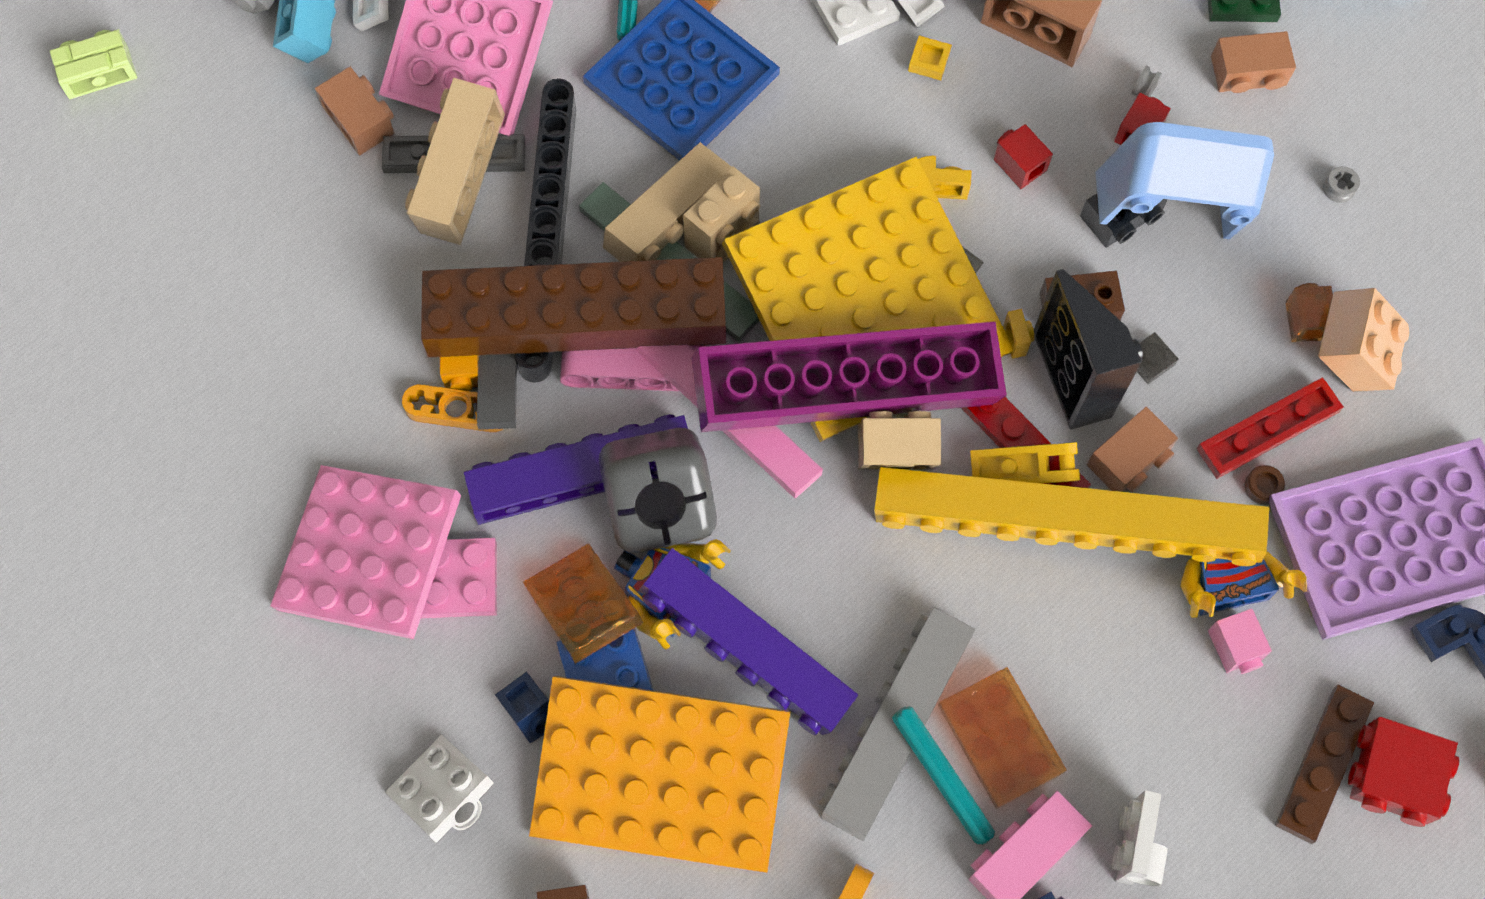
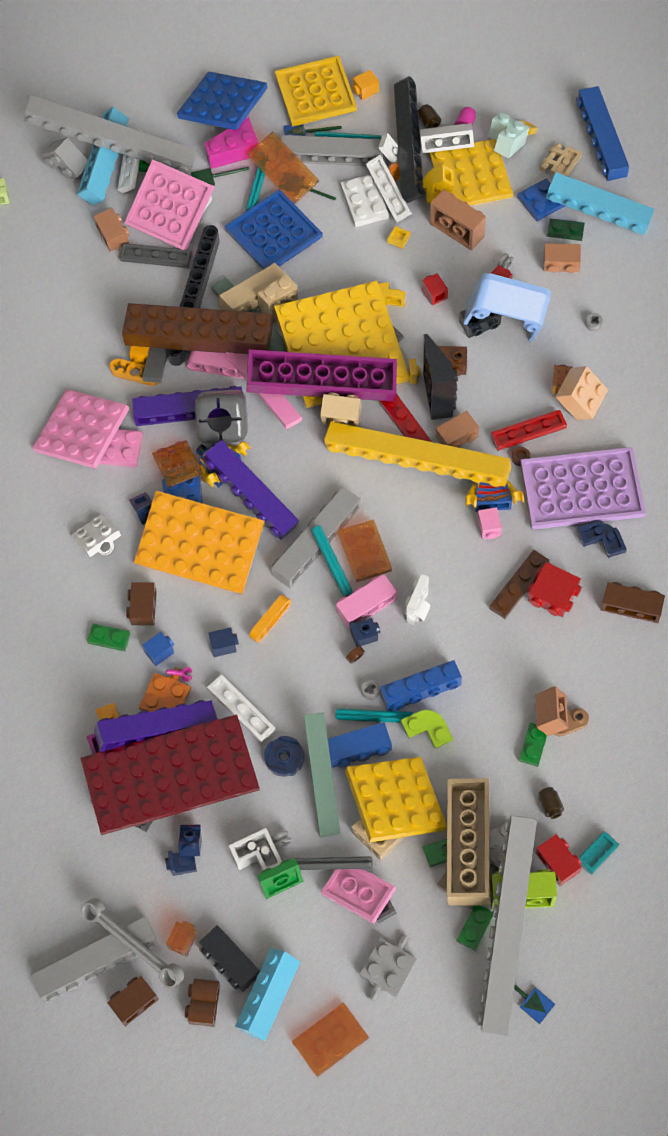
camera: 15 degrees right, 5 degrees down
(455, 161) = (154, 257): tan brick -> none
(1026, 463) = (404, 428): yellow plate -> none
(1156, 358) = (478, 391): clear smoke plate -> none

